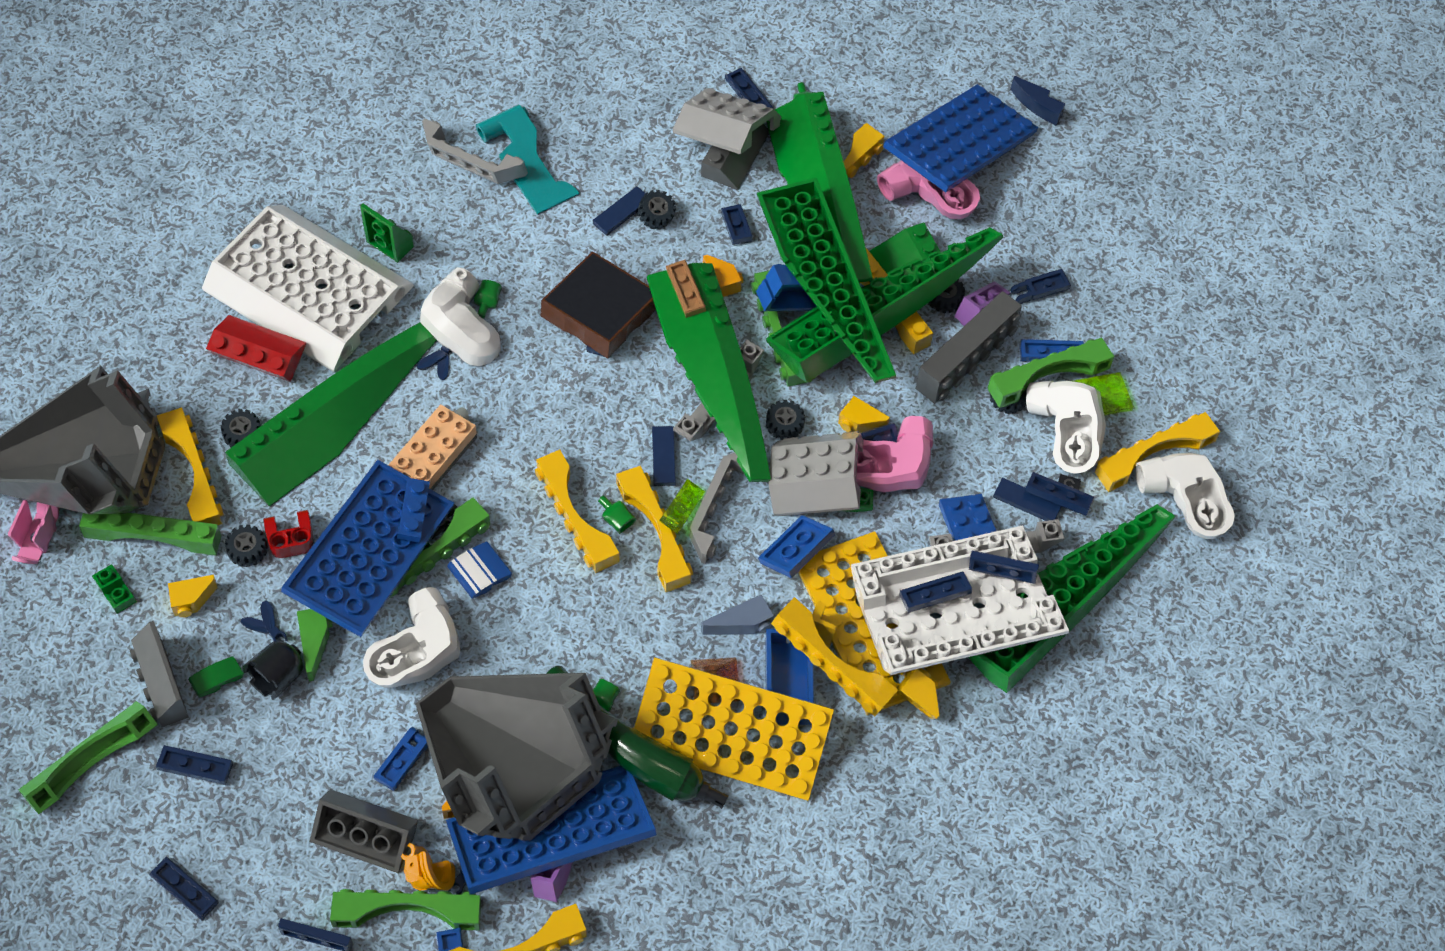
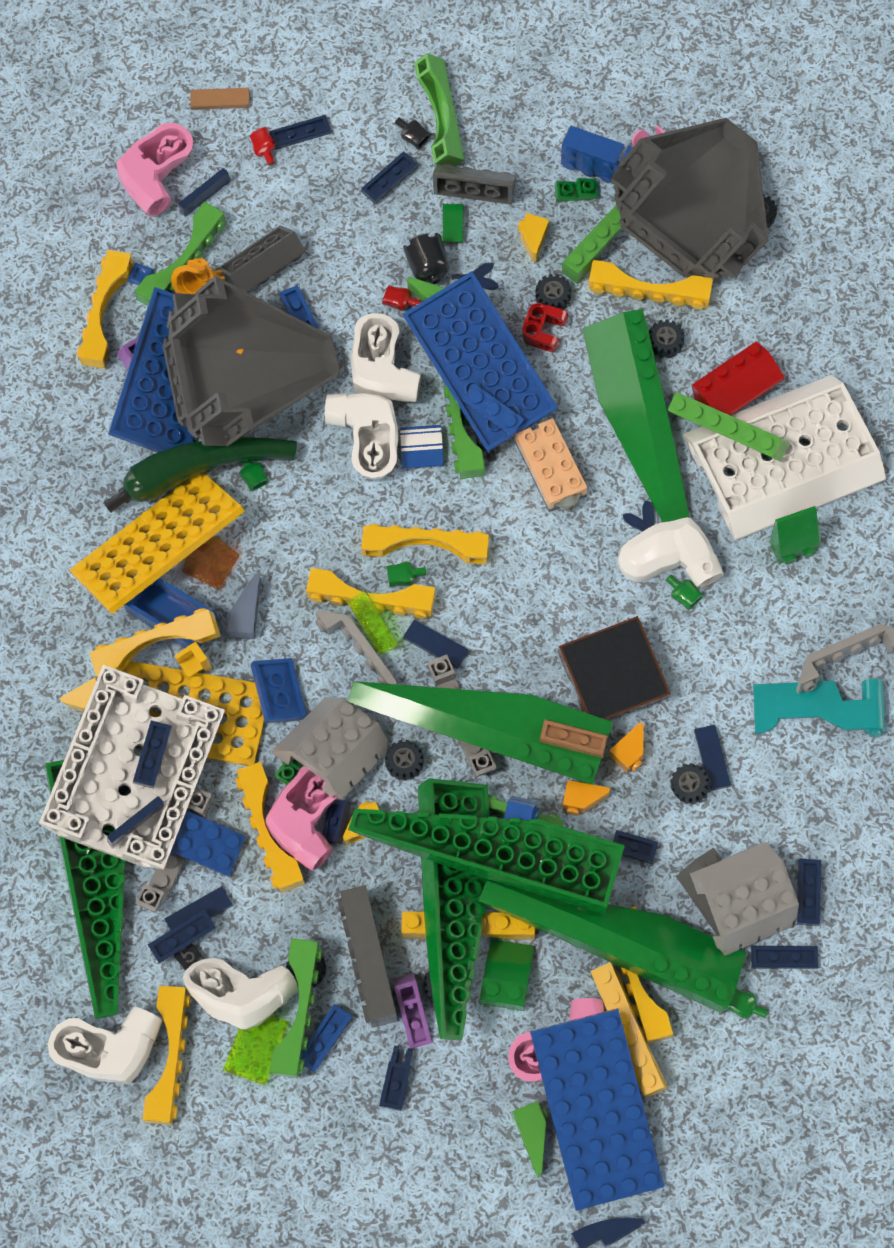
camera: 130 degrees right, 10 degrees up
(68, 573) = (591, 153): none -> blue piece
(126, 773) = (413, 132): none -> black piece
(221, 912) = (263, 144): none -> red piece
(311, 349) = (728, 426): none -> bright green arch
(331, 677) = (399, 298): none -> red piece
(495, 609) = (373, 430): none -> white piece
(653, 262) = (629, 750): none -> light orange slope
(673, 103) = (809, 892): none -> dark blue plate
(880, 157) = (614, 996): none -> yellow arch
(893, 515) = (284, 867): none -> yellow arch
(1007, 177) = (532, 1126): none -> bright green slope

